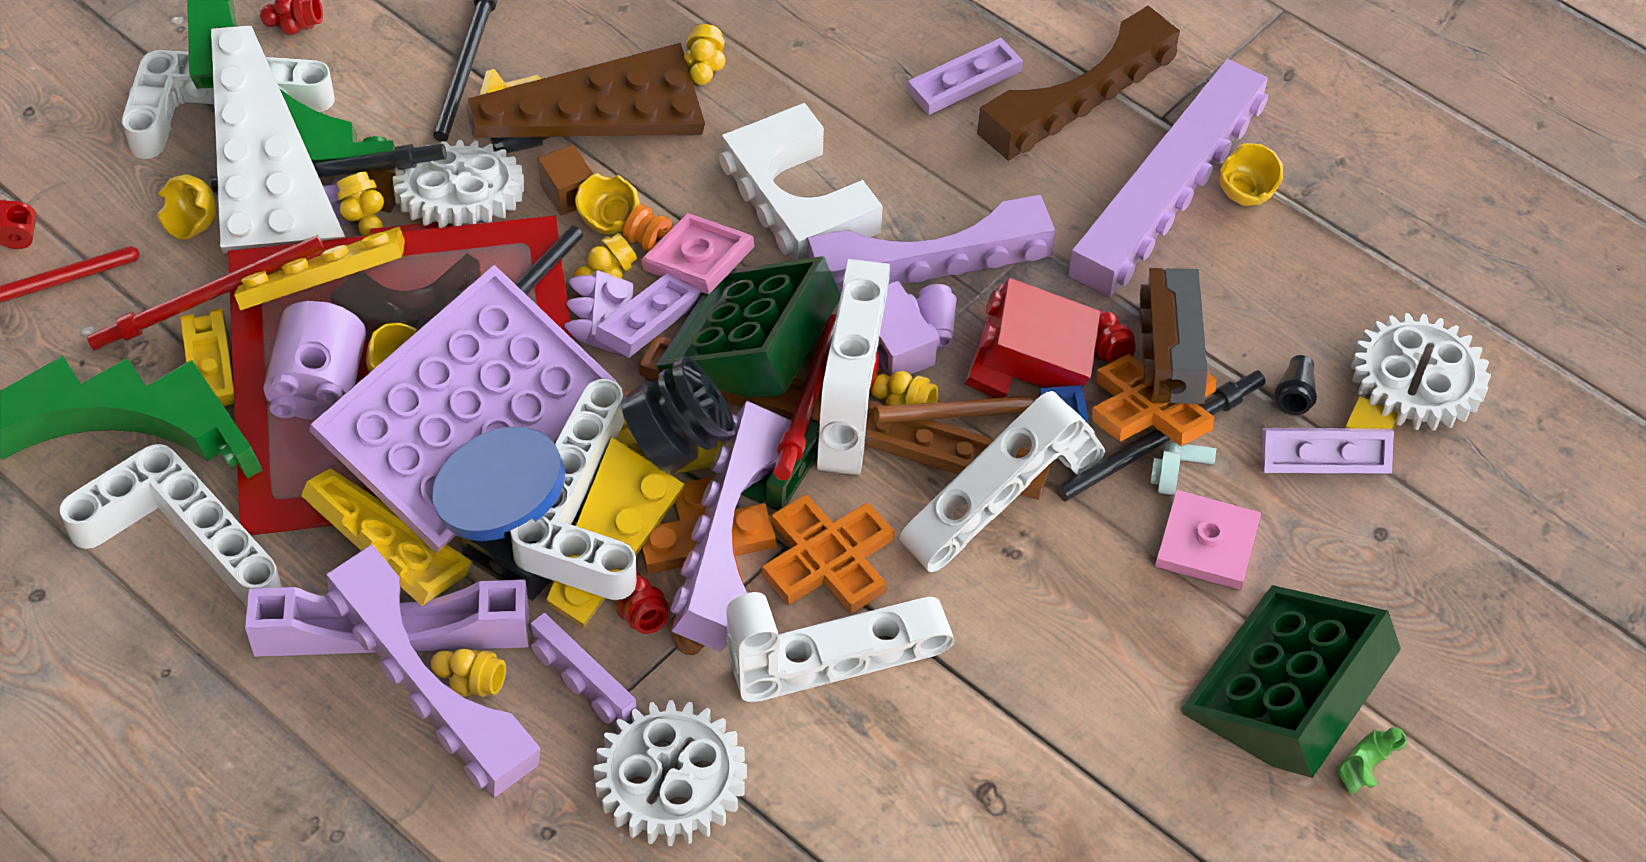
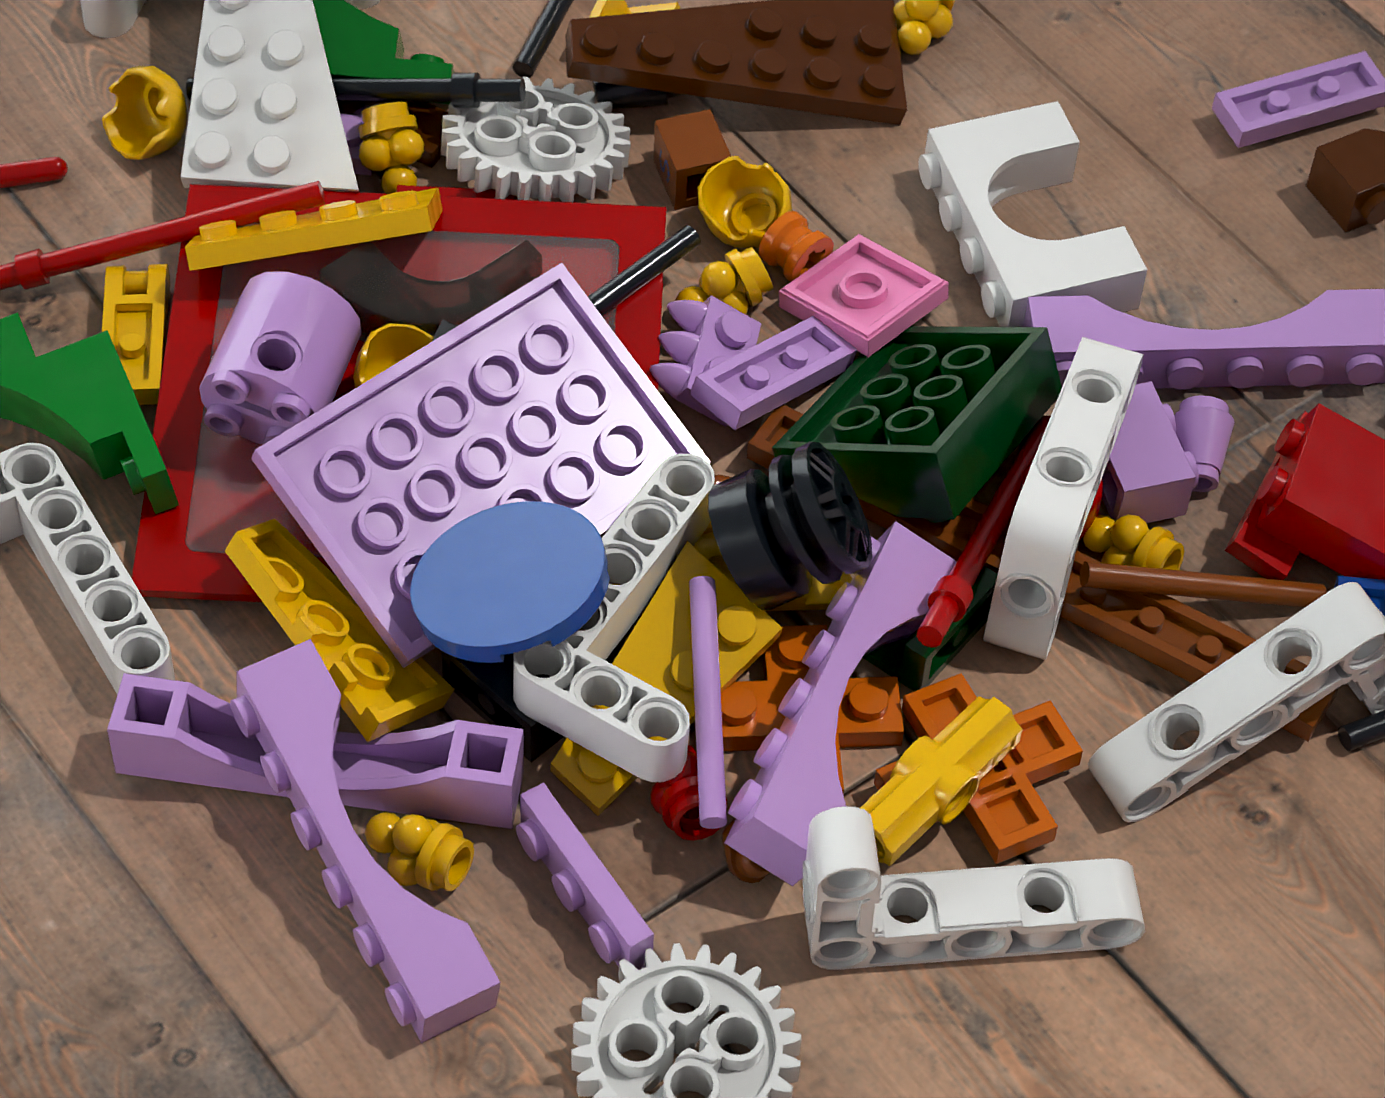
camera: 10 degrees right, 0 degrees up
(644, 541) = (707, 703): none -> lavender bar
(805, 562) = (940, 776): none -> yellow piece

